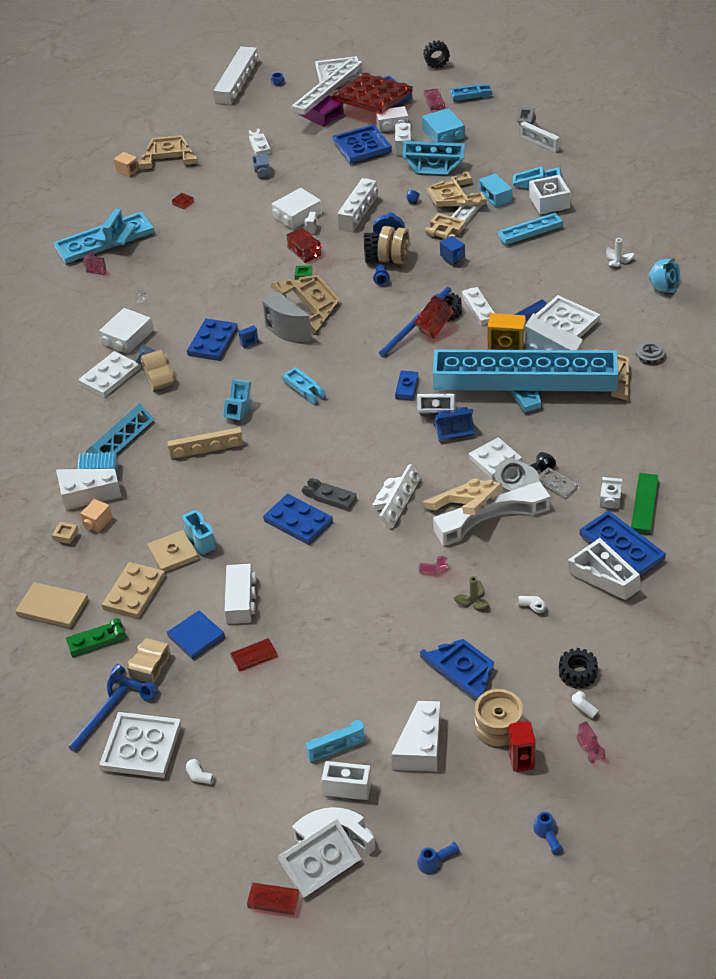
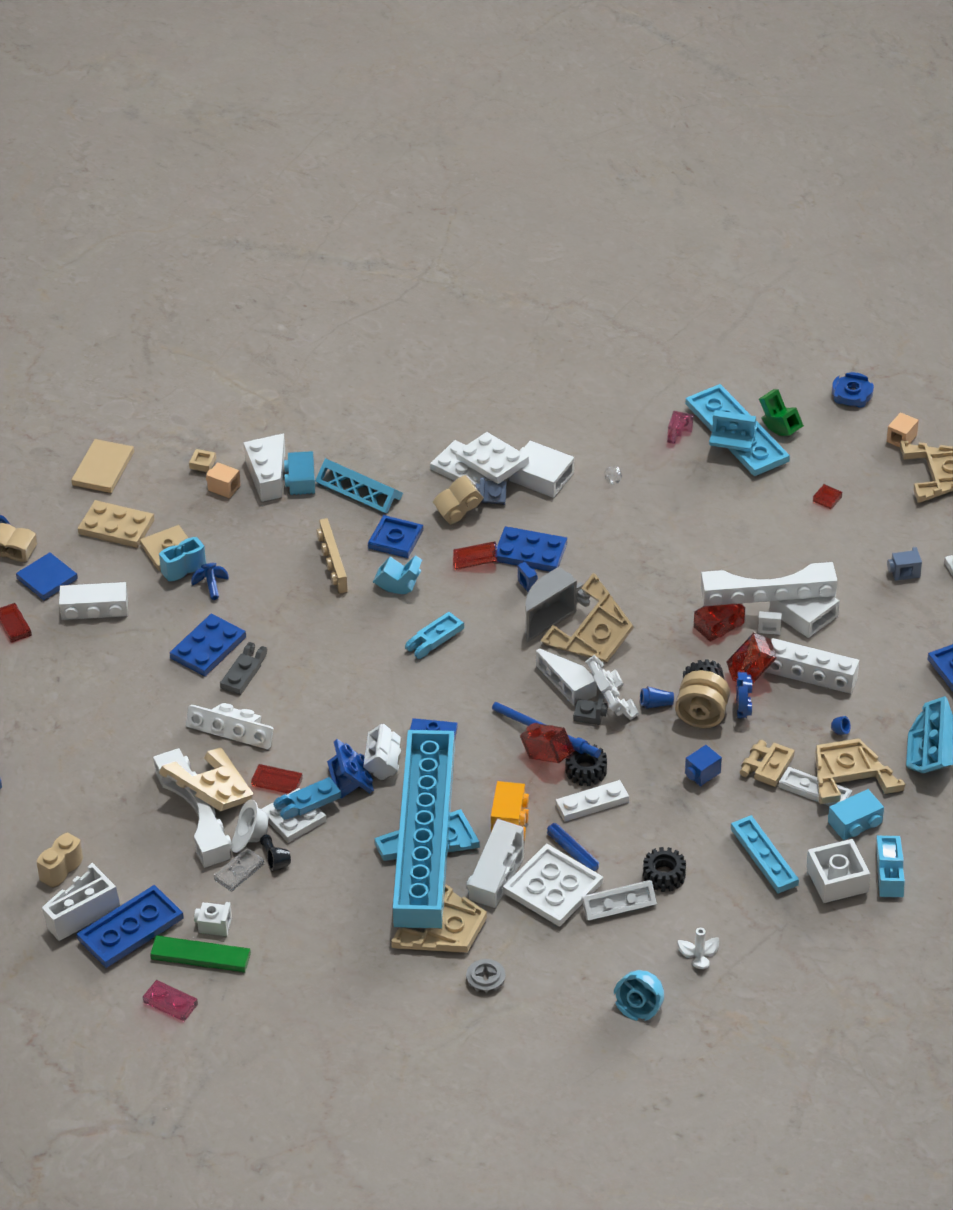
camera: 85 degrees right, 0 degrees up
(74, 186) = (844, 395): none -> blue plate
(96, 638) = (52, 502): green plate -> none
(97, 215) = (777, 417): none -> green brick
(115, 349) = (492, 457): none -> white plate
(183, 412) = (395, 536): none -> blue tile
(214, 517) = (210, 571): none -> blue plant
(217, 364) = (475, 555): none -> clear red tile
(290, 227) = (725, 588): none -> white arch
(302, 271) = (659, 621): green plate -> none
(356, 223) = (752, 657): none -> clear red brick
(357, 315) = (568, 677): none -> white slope
(376, 289) = (608, 685): none -> white piece
(391, 304) = (590, 711): none -> dark grey bracket
(435, 568) = (116, 760): clear pink arm -> none
(456, 469) = (276, 779): none -> clear red tile
(476, 591) = (67, 788): olive plant -> none
(487, 440) = (307, 798): none -> dark azure hinge
(533, 602) = (43, 846): white arm -> none
(546, 270) = (664, 859): none -> black tyre
(556, 590) = (59, 860): none -> tan brick
(577, 289) = (618, 900): none -> white plate
(693, 518) = (170, 1000): none -> clear pink plate

